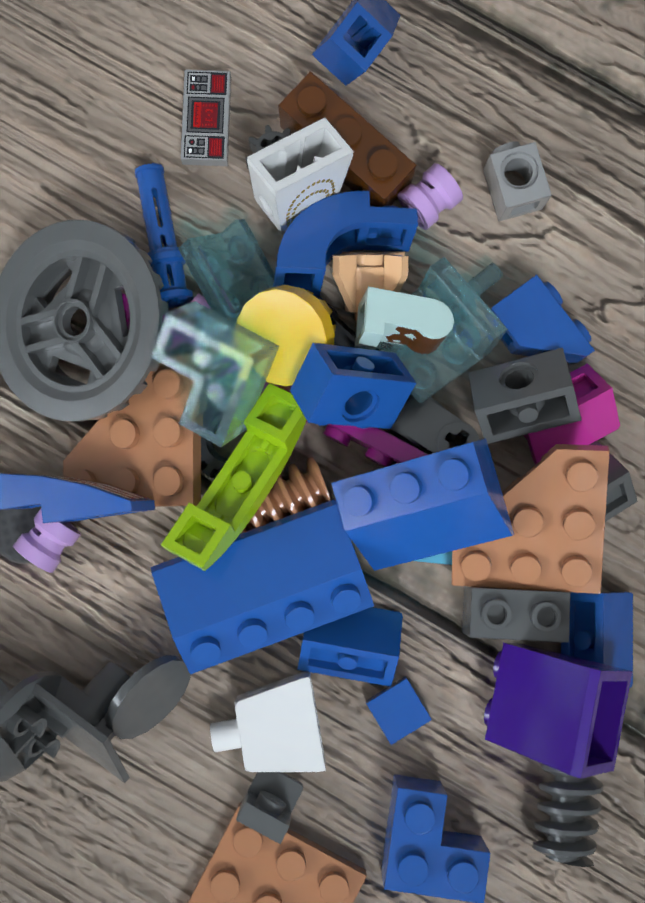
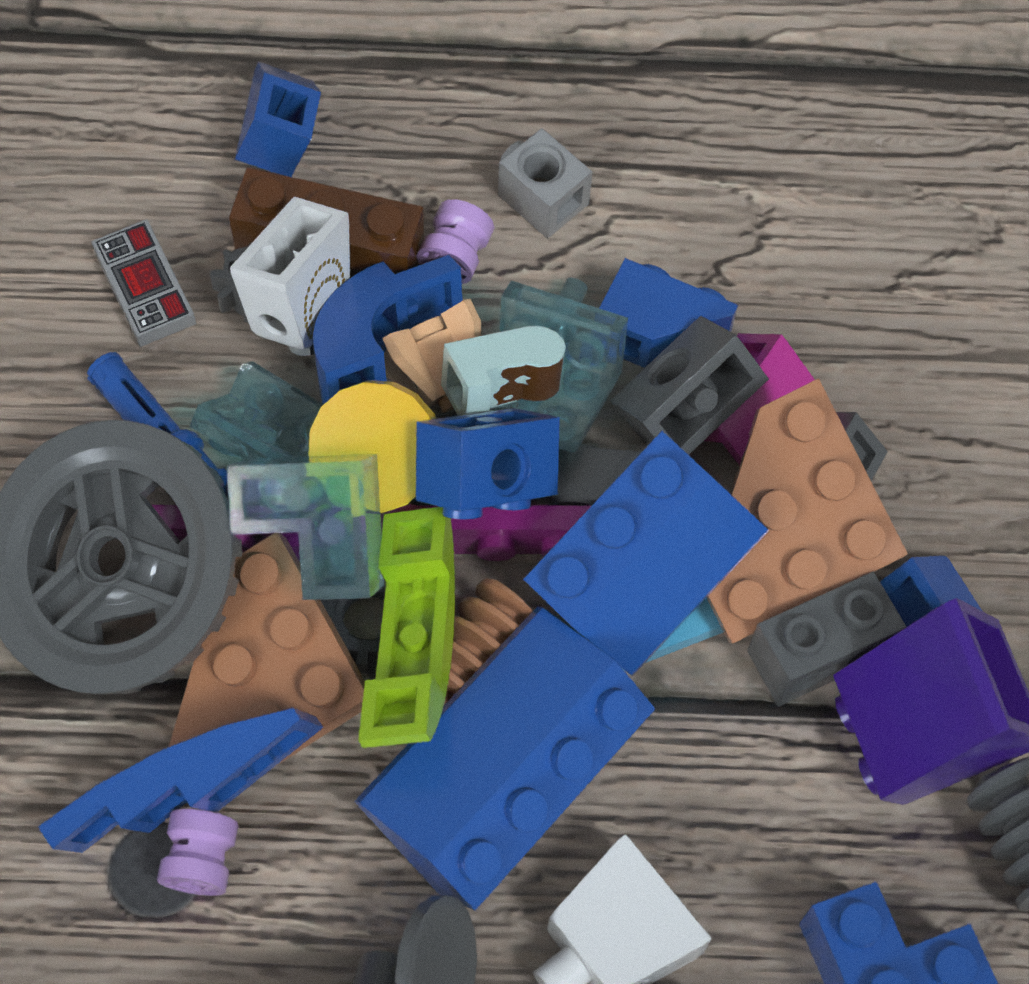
camera: 30 degrees left, 20 degrees down
(355, 647) = (658, 785): blue panel -> none
(398, 710) = (757, 836): blue tile -> none

